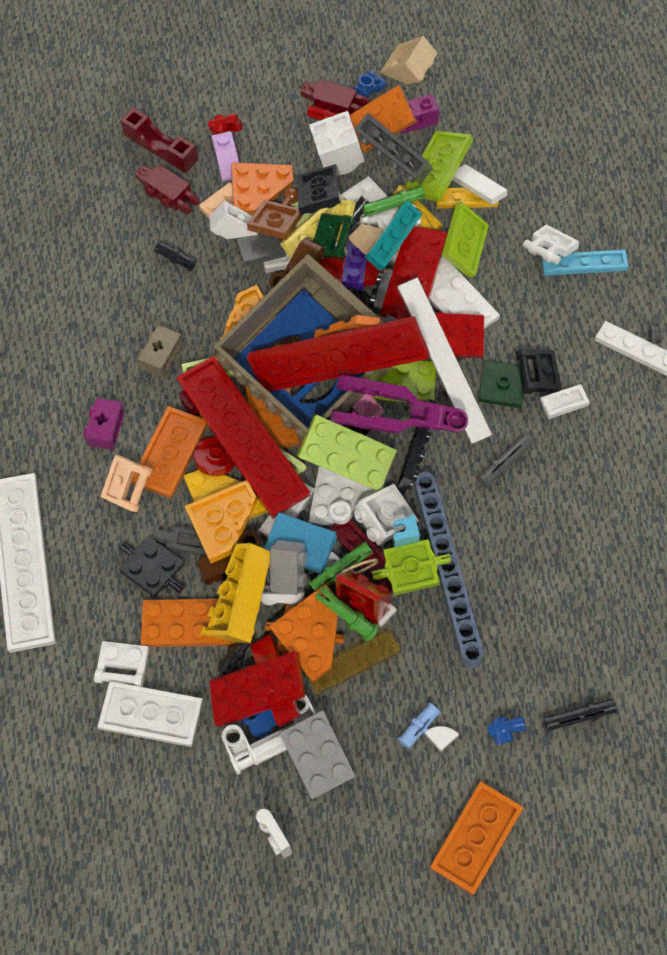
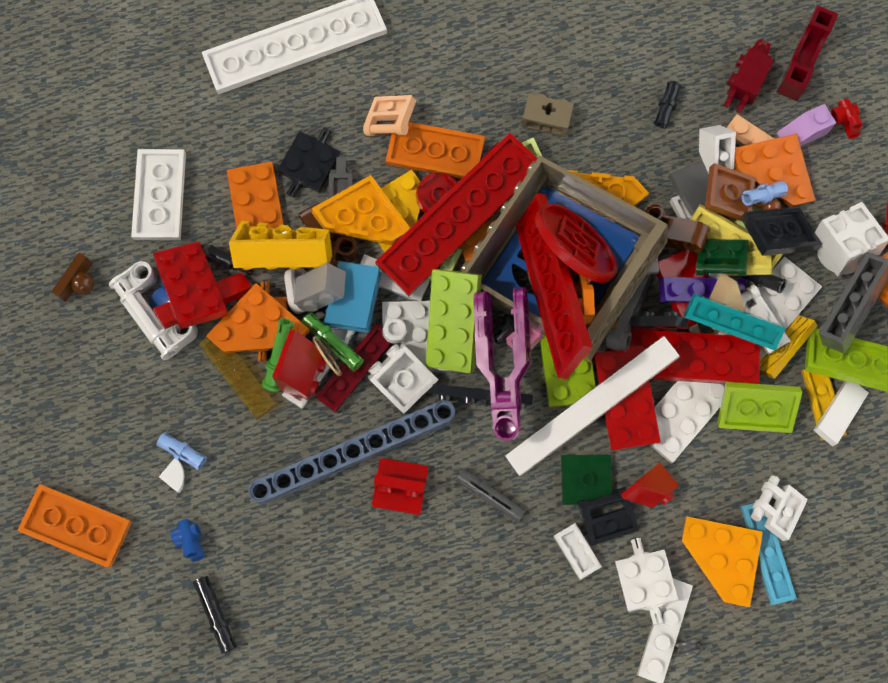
camera: 75 degrees right, 10 degrees up
(104, 423) = (444, 88): magenta brick -> none
(124, 657) = (213, 158): white plate -> none
(226, 804) = (75, 279): none -> reddish brown tile
(276, 839) = (44, 335): white plate -> none
(282, 194) = (764, 193): none -> light blue pin
(304, 330) = (576, 243): none -> red plate
(316, 754) = (135, 355): light grey plate -> none
(393, 201) = (786, 316): bright green pin -> none
(410, 534) = (378, 404): medium azure hinge -> none
(411, 567) = (342, 412): lime plate -> none
(485, 534) = (399, 486): none -> red bracket
(519, 331) = (652, 488): none -> red slope
(584, 292) = (725, 556): none -> light orange plate
(597, 352) = (646, 581): none -> white plate

